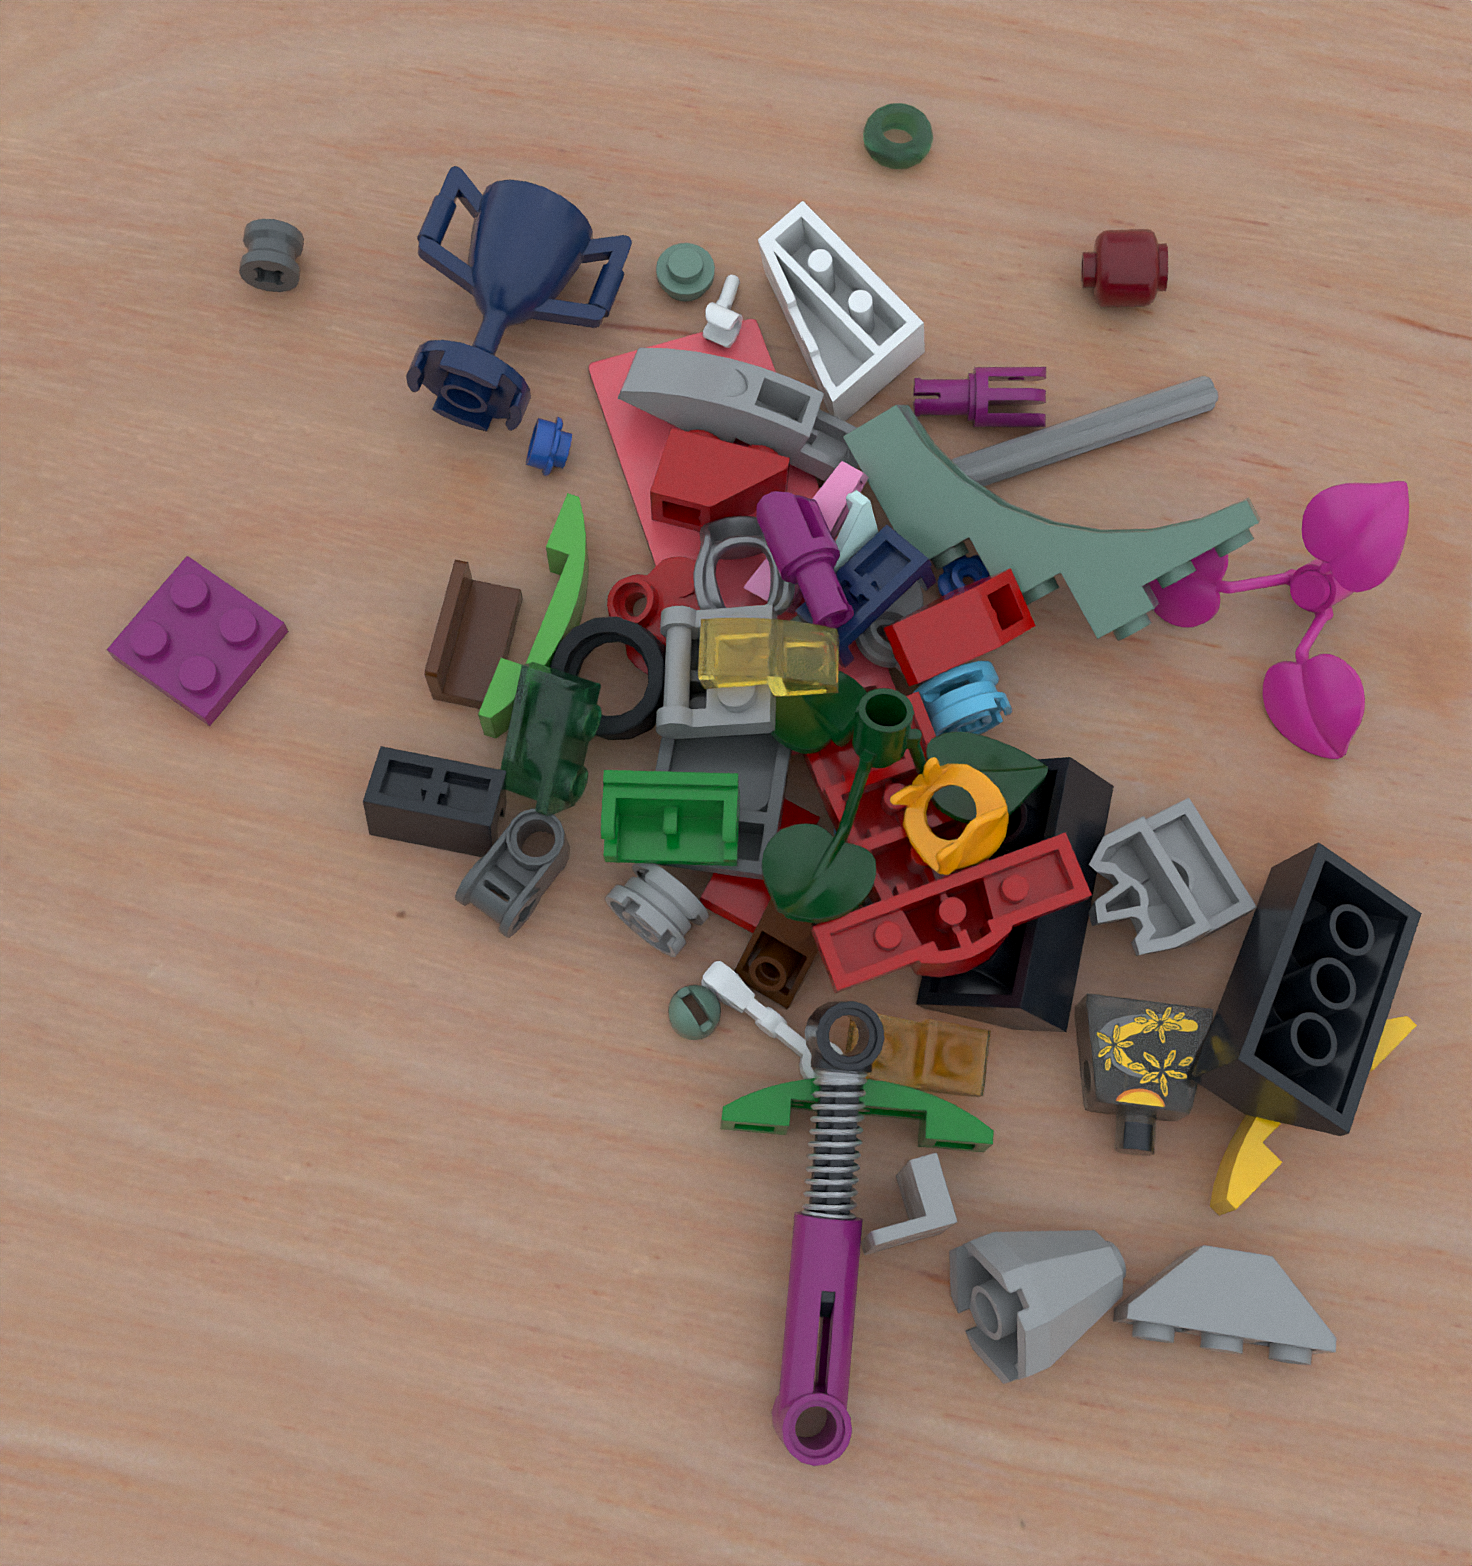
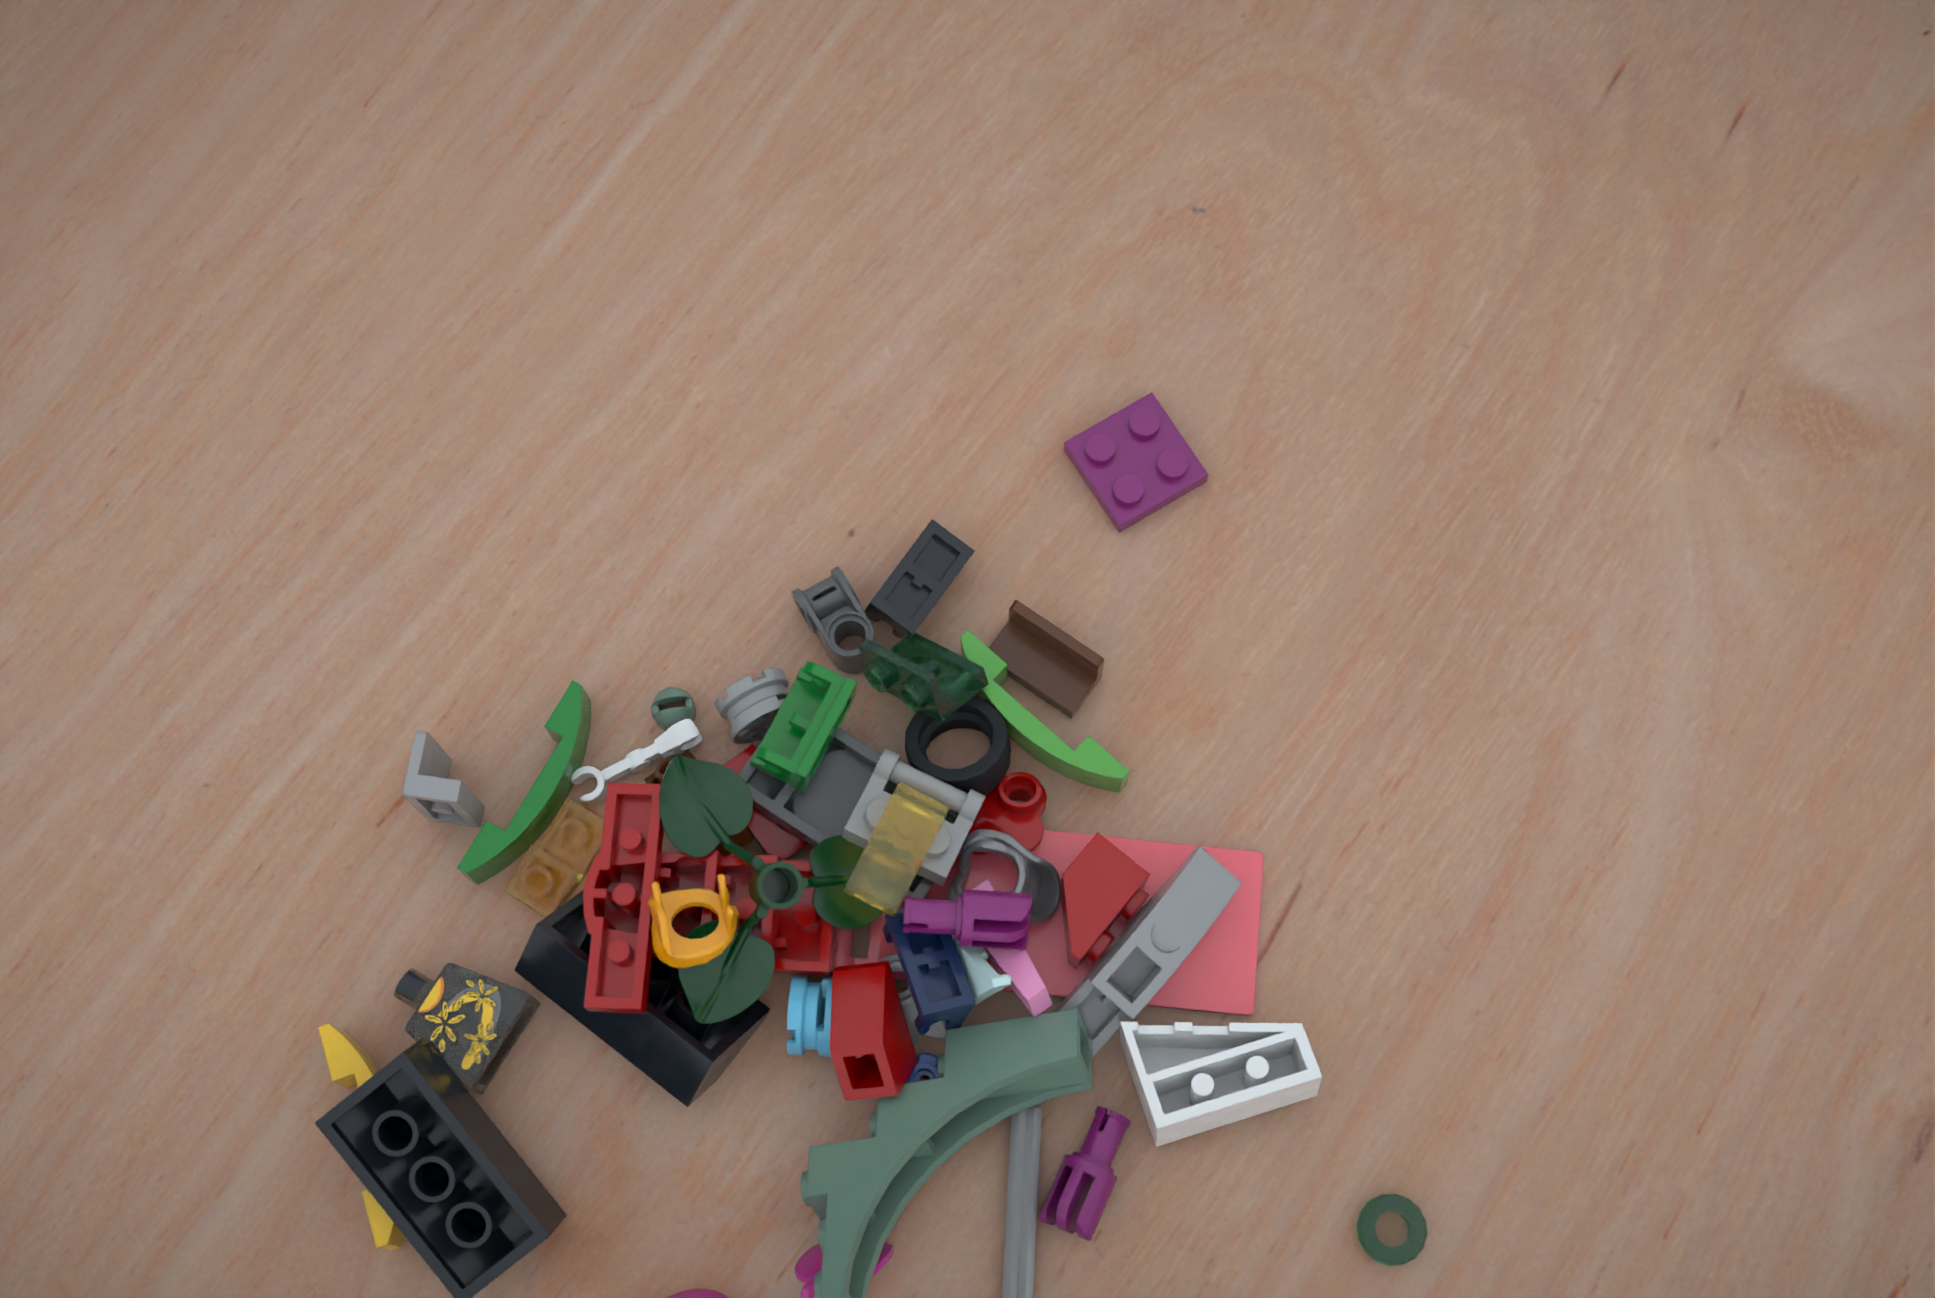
camera: 120 degrees right, 0 degrees up
(271, 255) = (1461, 628): dark grey wheel -> none
(518, 262) = (1357, 811): dark blue piece -> none
(548, 445) = (1193, 785): blue plate -> none
(685, 271) = (1319, 970): sand green plate -> none
(723, 323) = (1255, 974): white hand -> none
(826, 1243) = (456, 719): piece -> none
(1033, 1294) = (340, 857): light grey cone -> none
(1168, 880) = (590, 1110): light grey plate -> none
(1228, 1302) = (262, 996): light grey slope -> none

